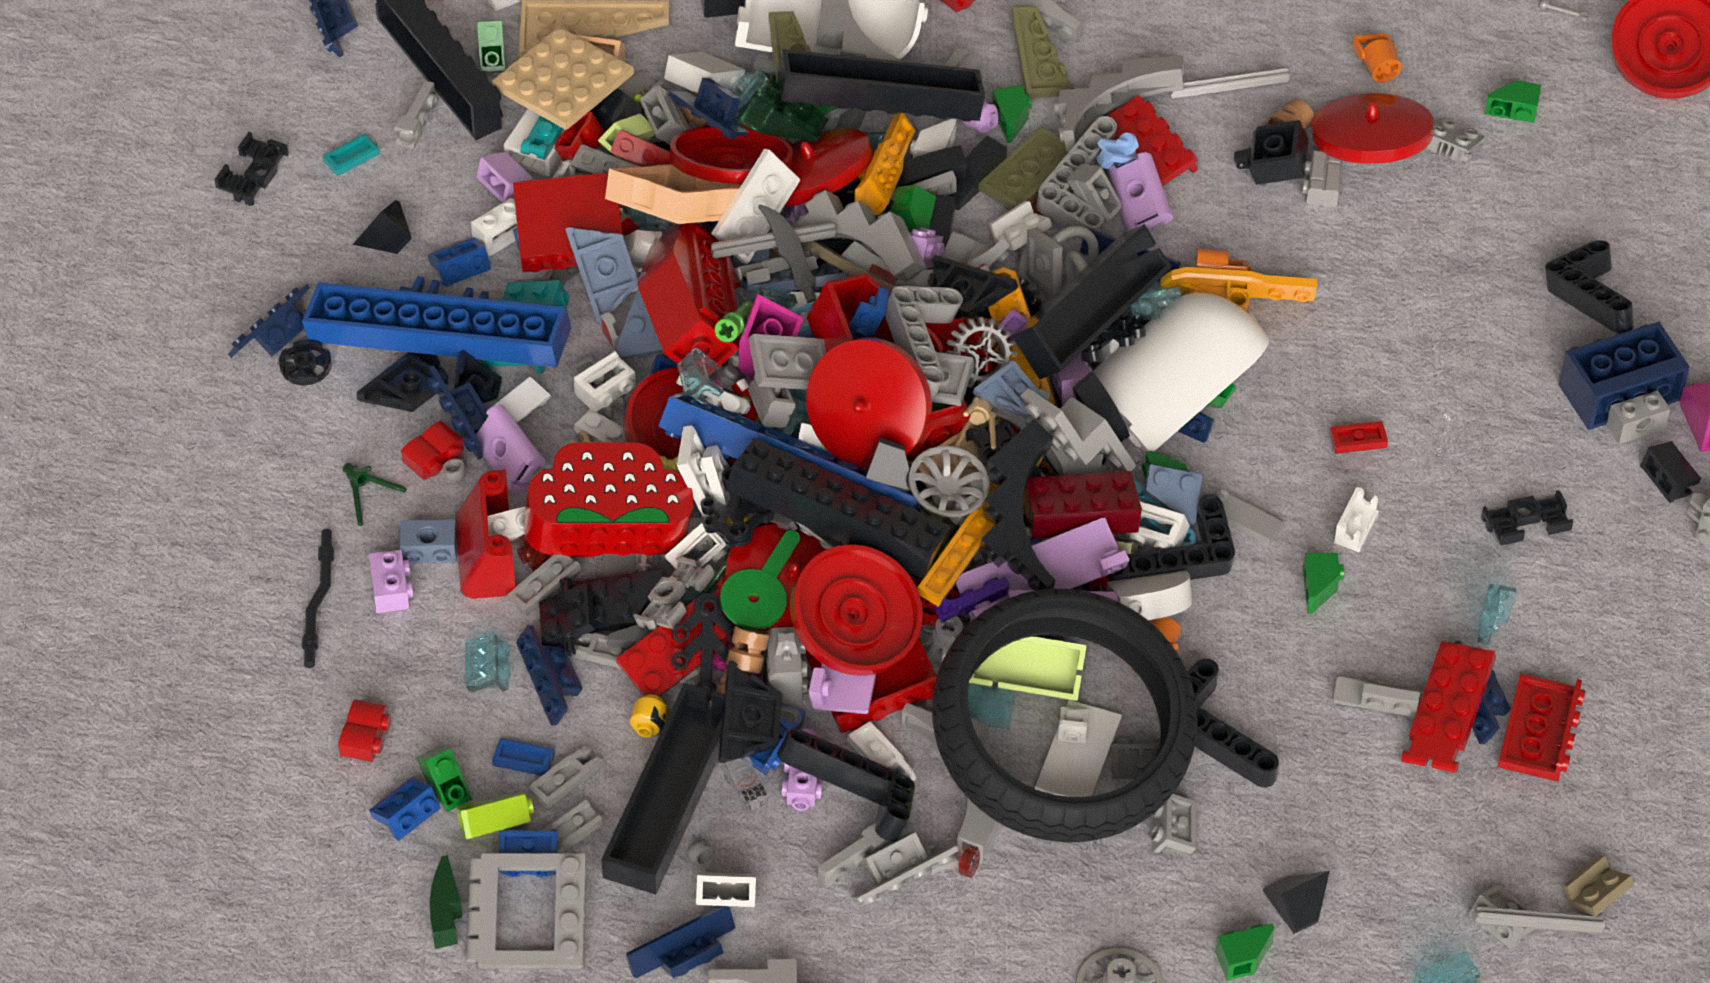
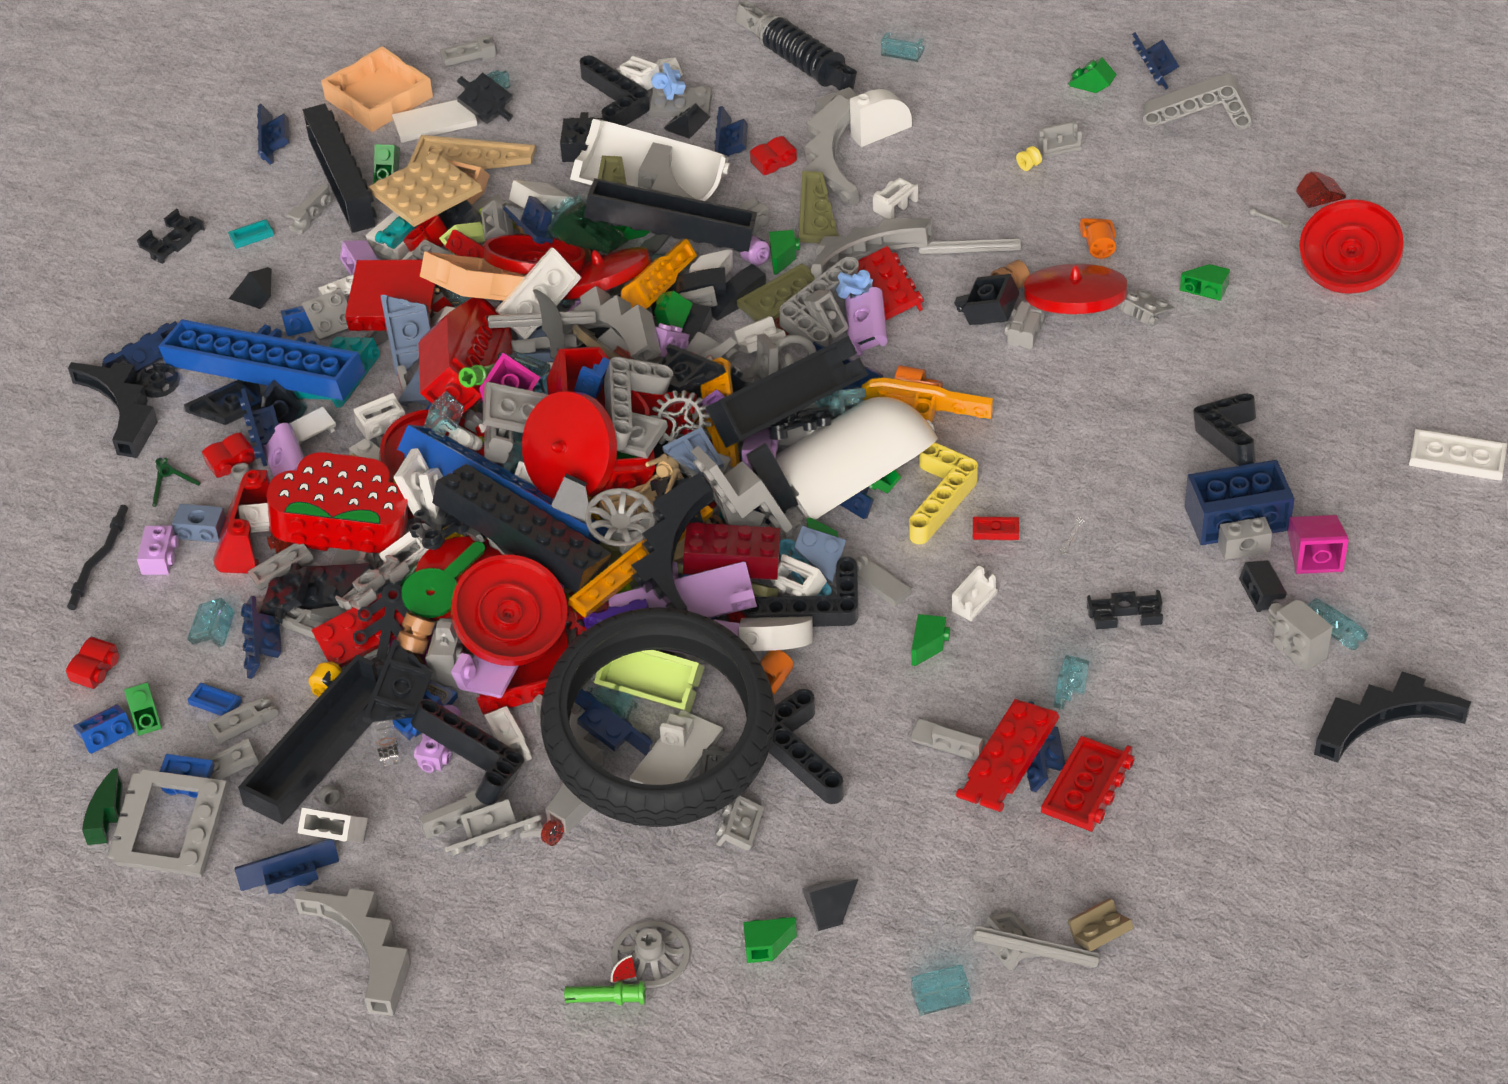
camera: 15 degrees right, 5 degrees down
(280, 391) = (120, 386): none -> black arch
(493, 255) = (327, 314): none -> light grey hinge
(494, 814) = (167, 741): lime slope -> none
(1005, 734) = (609, 727): none -> dark blue bracket
(1120, 41) = (895, 193): none -> white window
(1302, 377) = (959, 478): none -> light yellow beam

